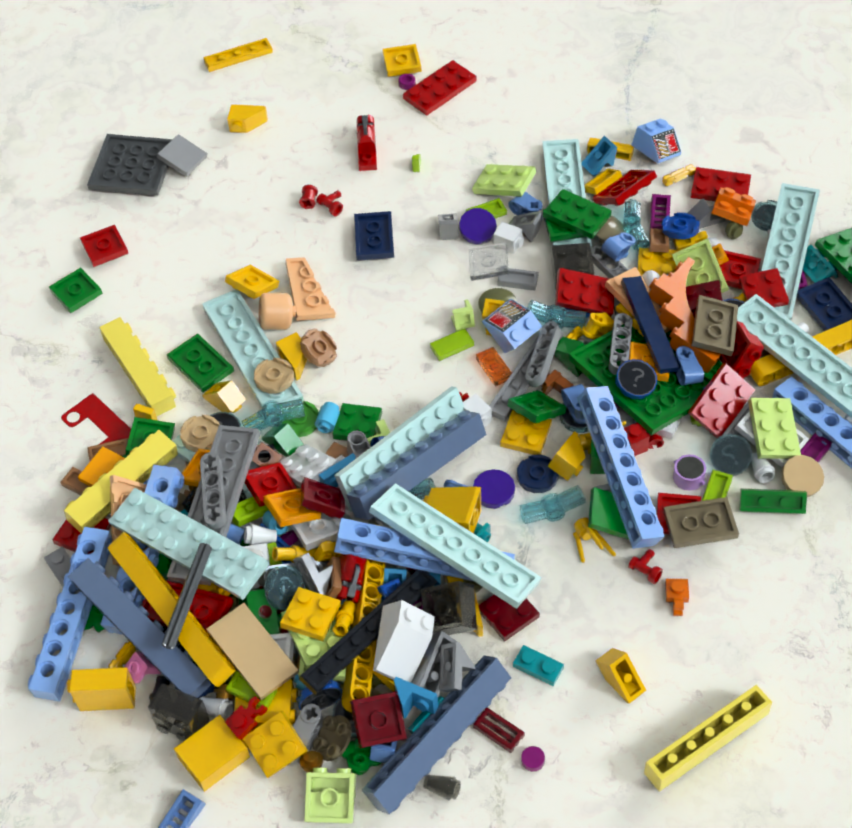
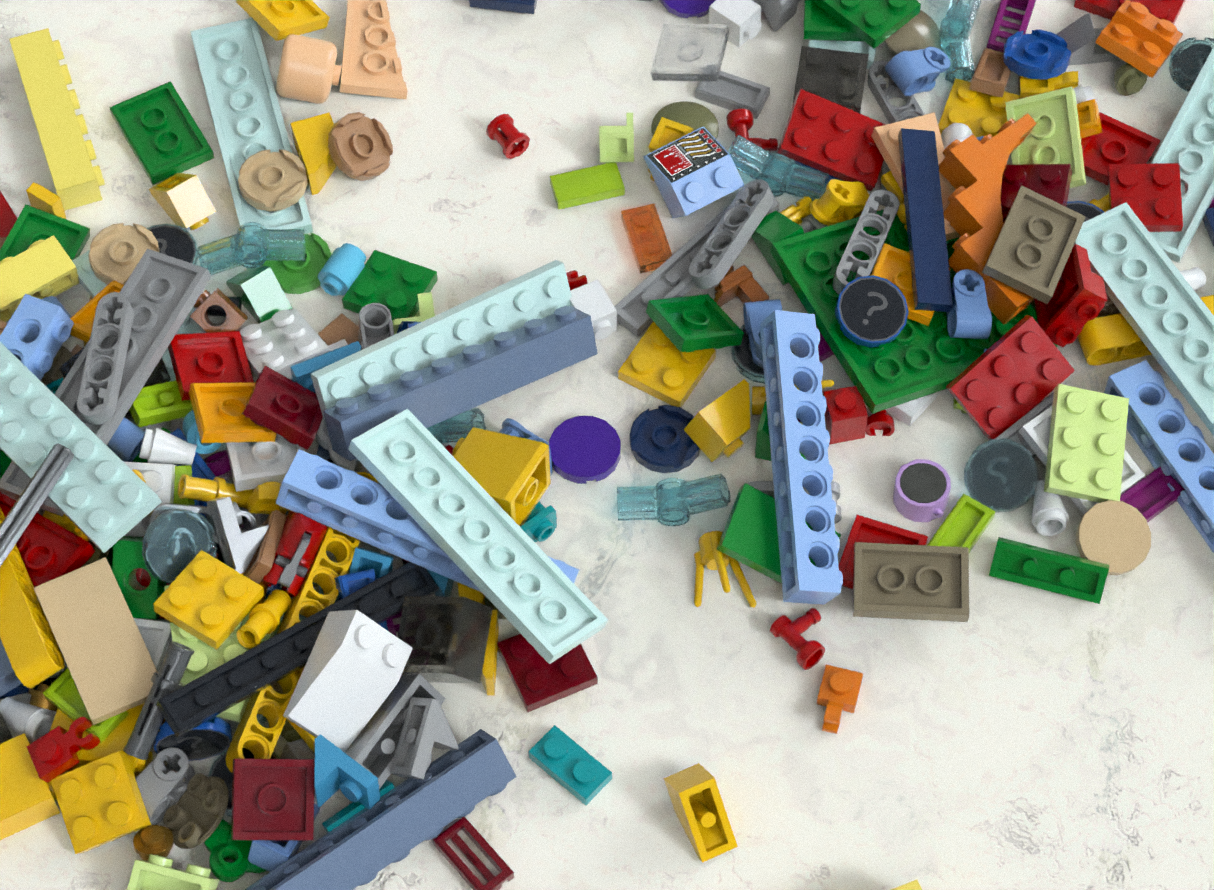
camera: 10 degrees right, 5 degrees up
(299, 666) = (164, 683): none -> dark grey pin
(404, 325) = (508, 136): none -> red bush
(528, 292) = (741, 121): none -> red piece

